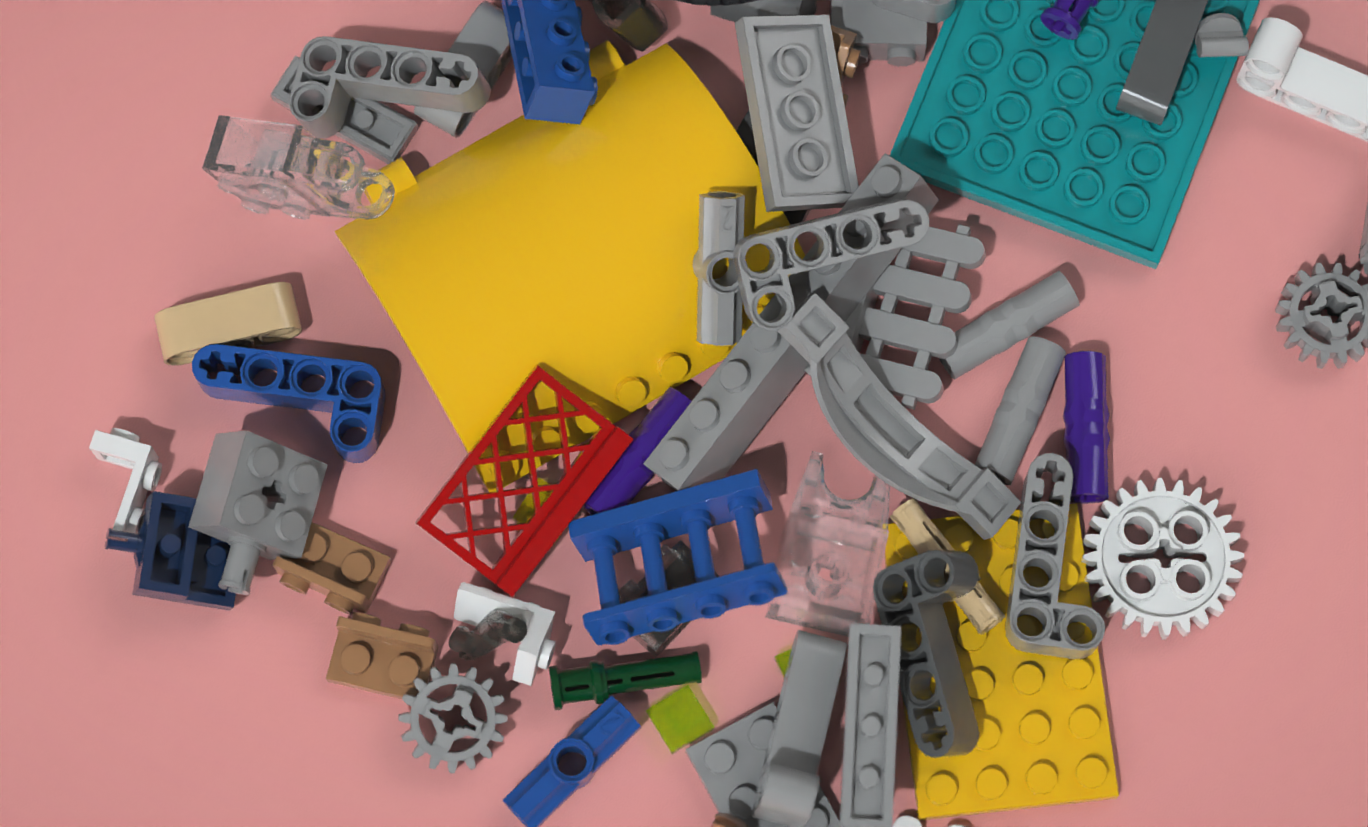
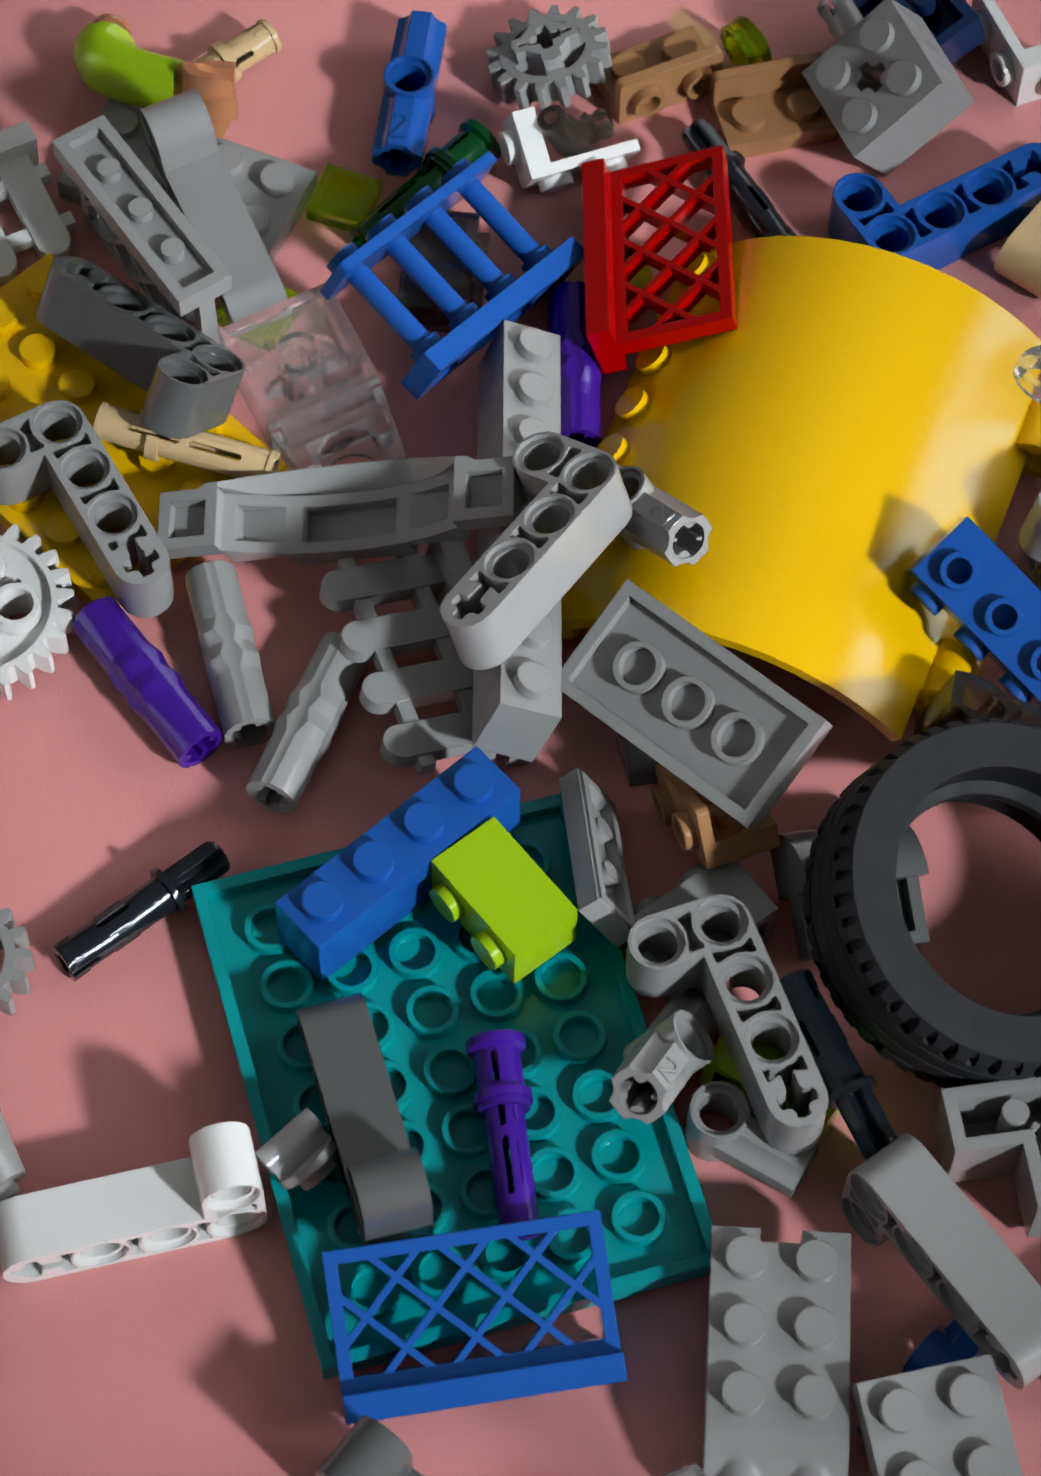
camera: 140 degrees right, 15 degrees down
(306, 630) = (744, 42): none -> clear neon green tile
(409, 537) = (746, 197): none -> black axle
(911, 93) = (597, 857): none -> light grey tile
(994, 96) = (502, 901): none -> lime brick
(1035, 166) = (389, 866): none -> blue brick
(1190, 278) = (140, 910): none -> black axle

